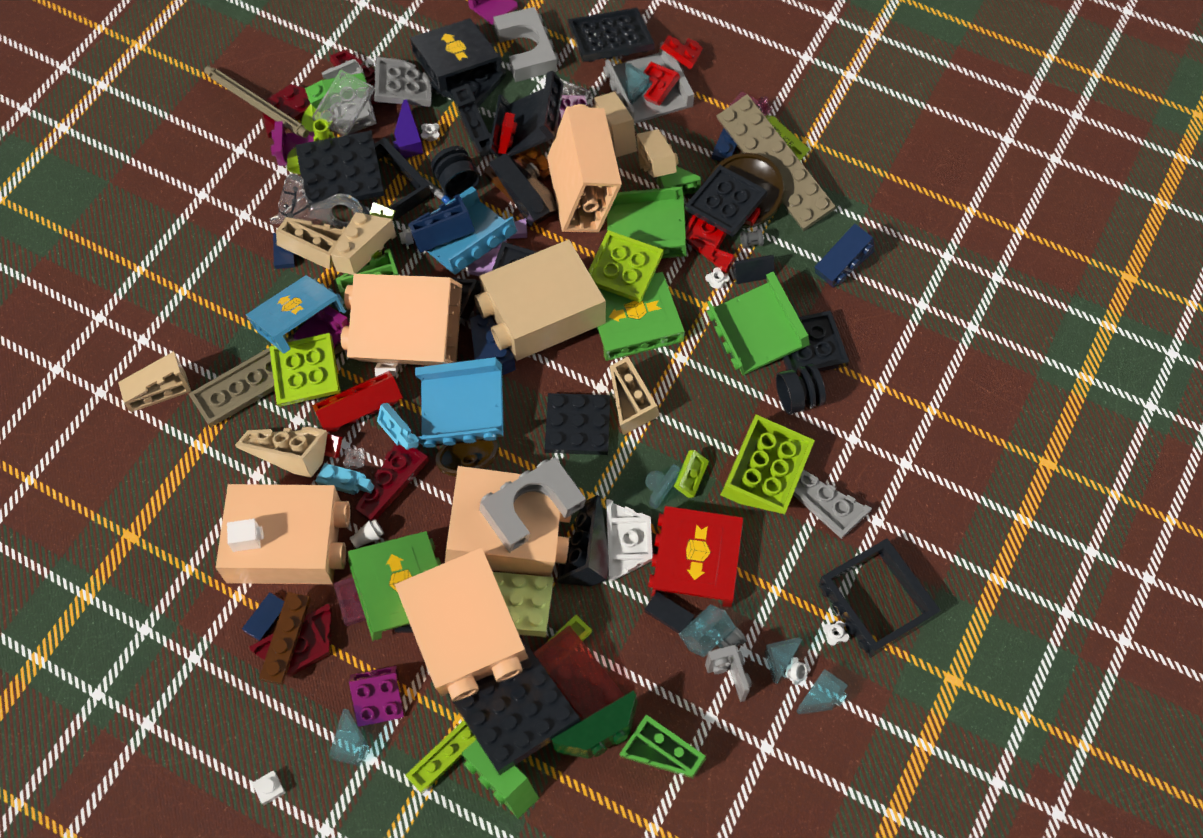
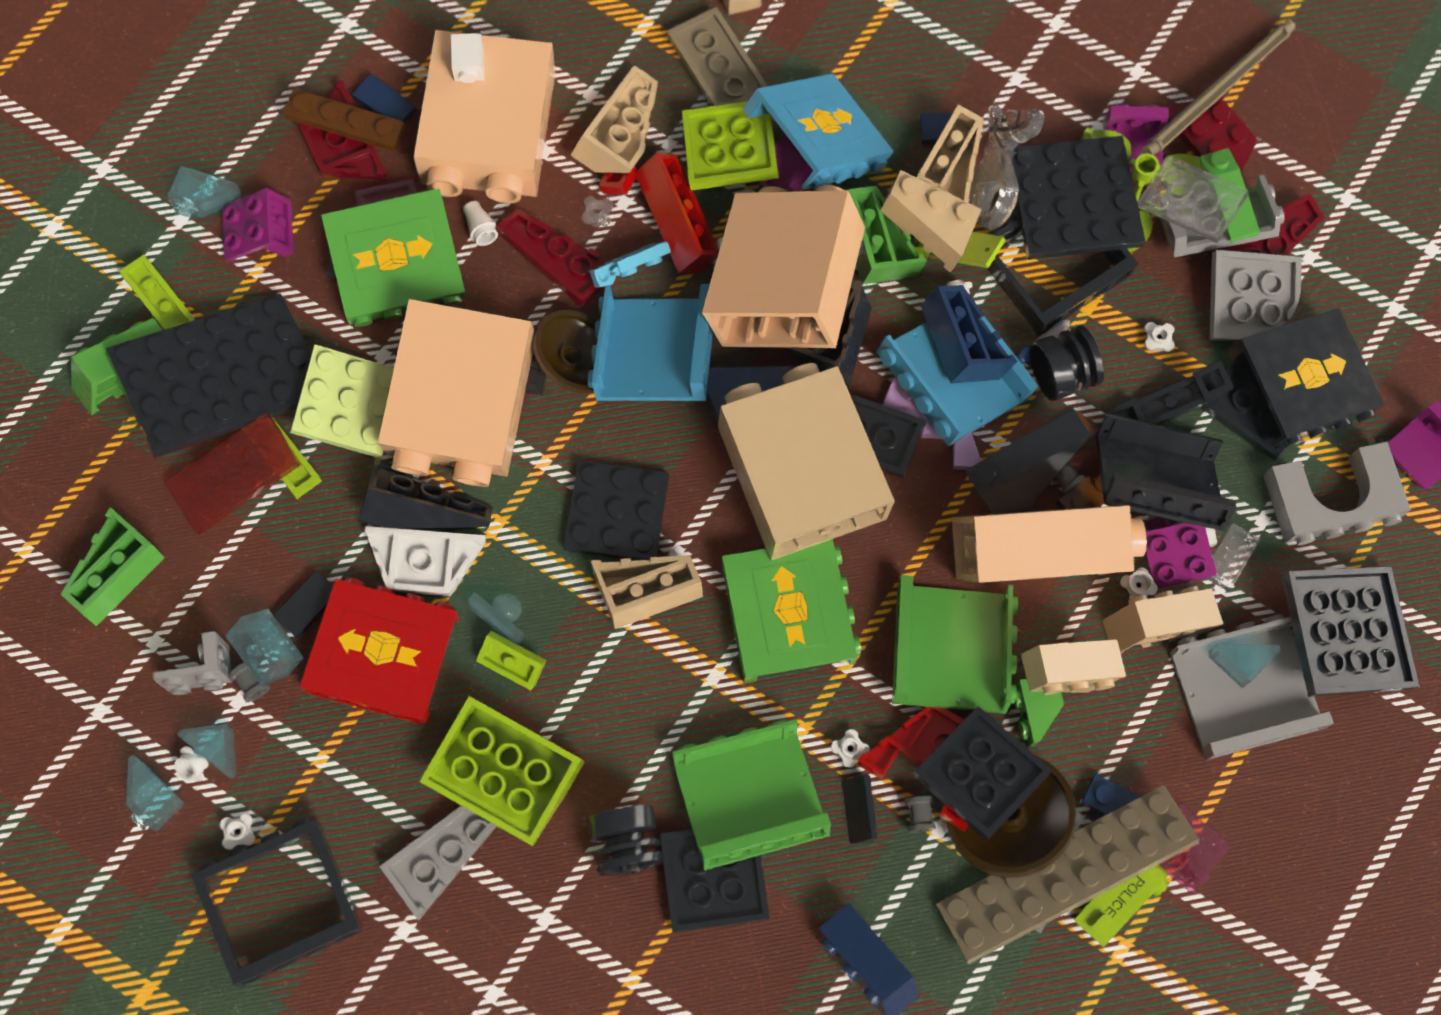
camera: 90 degrees right, 10 degrees up
(268, 788) = (164, 105): white plate -> none
(344, 479) = (563, 196): medium azure hinge -> none
(406, 133) = (1155, 300): dark purple slope -> none
(462, 625) = (301, 316): light nougat brick -> none
(508, 128) = (1125, 437): red plate -> none
(547, 479) = (454, 370): light grey arch -> none
(599, 730) = (141, 484): dark green wedge -> none
(625, 266) = (863, 594): lime plate -> none
(662, 82) = (1248, 708): red plate -> none
(685, 54) = (1305, 752): red plate -> none

